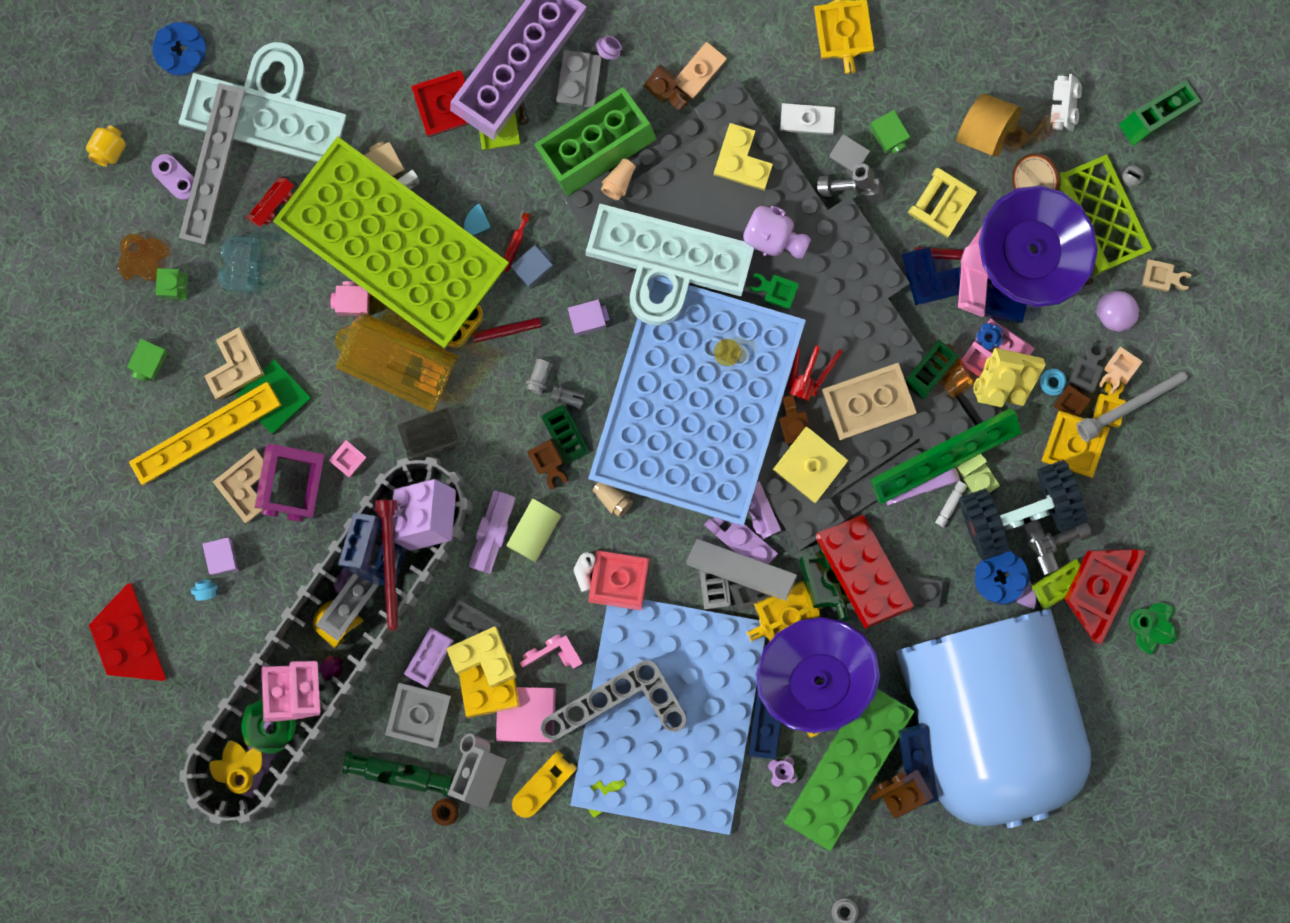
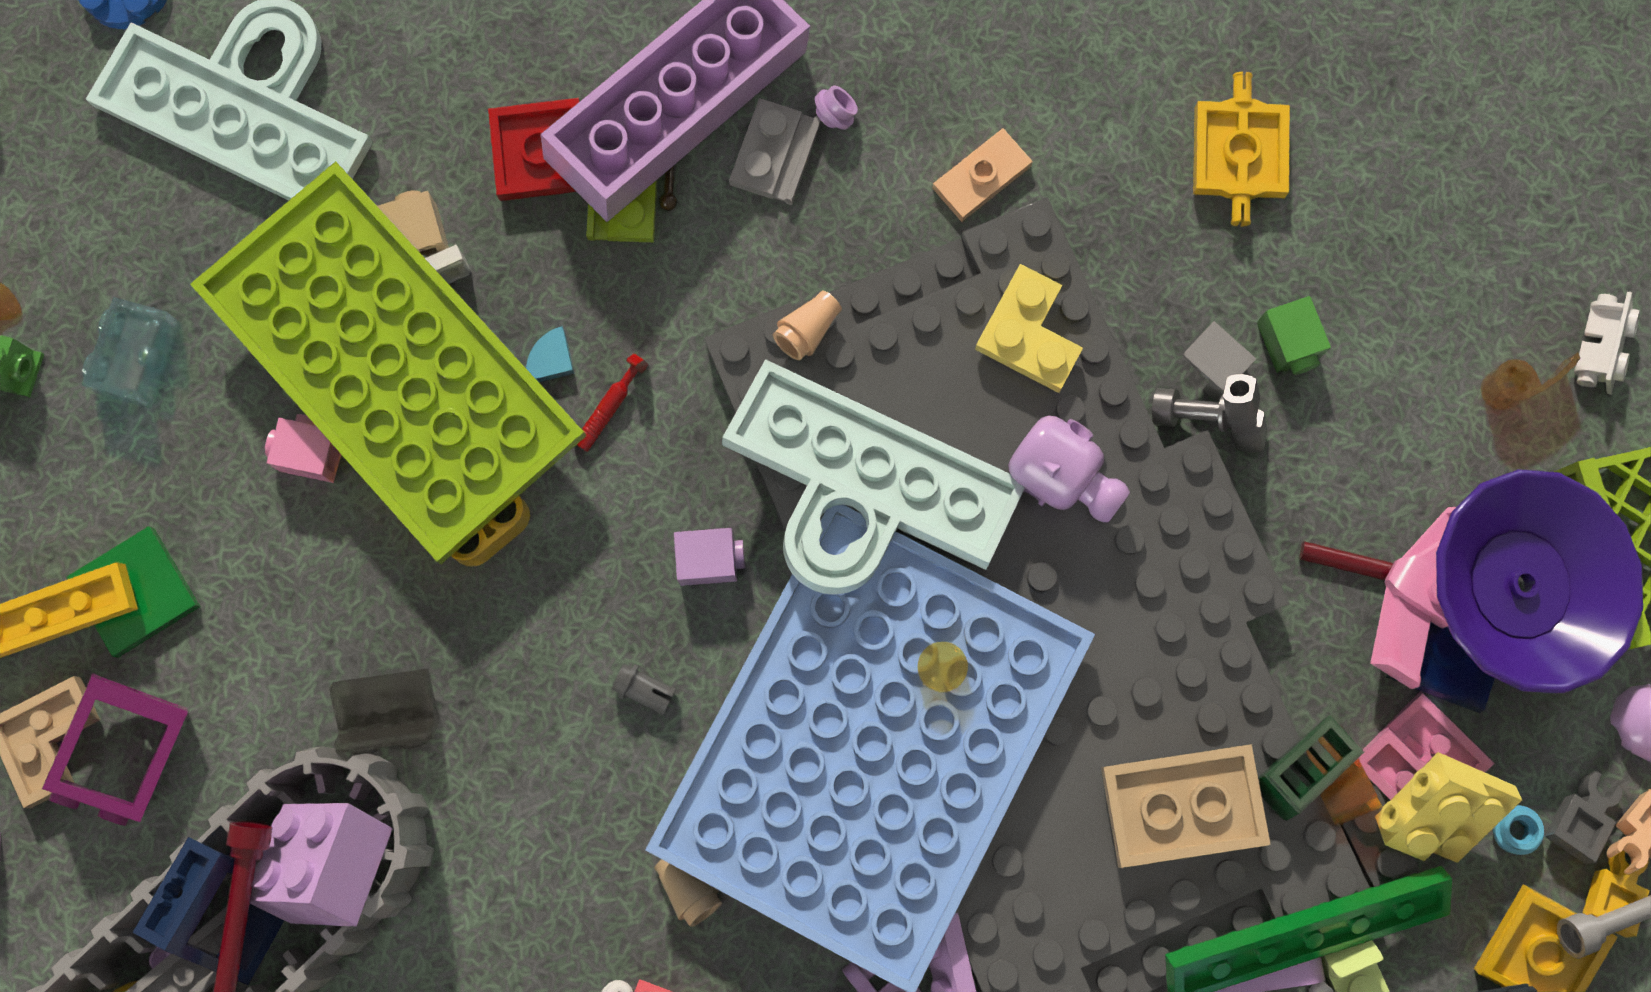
camera: 10 degrees right, 5 degrees down
(173, 176) = (59, 186): lavender plate -> none
(212, 163) = (121, 174): light grey plate -> none
(240, 368) = (84, 532): tan plate -> none
(264, 210) = (199, 253): red plate -> none
(348, 459) = (233, 726): bright pink plate -> none
(395, 361) = (350, 569): clear yellow piece -> none
(492, 532) = (456, 910): lavender piece -> none
(506, 330) = (563, 551): dark red piece -> none
(533, 266) = (630, 449): sand blue brick -> none
(533, 530) = (532, 921): yellowish green brick -> none
(539, 376) = (601, 644): light grey pin -> none
(547, 459) = (585, 795): reddish brown plate -> none
(562, 410) = (603, 742): dark green slope -> none
(595, 141) = (781, 254): bright green brick -> none
(664, 86) = (916, 189): reddish brown plate -> none
(779, 290) = (1055, 573): green plate -> none
(794, 422) = (1040, 823): reddish brown plate -> none
(803, 386) = (1069, 755): red plant -> none
(807, 119) = (1152, 288): white plate -> none
(810, 464) = (1057, 903): light yellow plate -> none
(925, 282) = (1317, 608): clear blue plate -> none
(949, 208) = (1378, 484): light yellow plate -> none
(988, 124) = (1473, 352): pearl gold slope -> none
(995, 341) = (1415, 712): blue plate -> none
(1036, 170) = (1543, 445): tan piece -> none
(1071, 400) = (1549, 871): reddish brown plate -> none

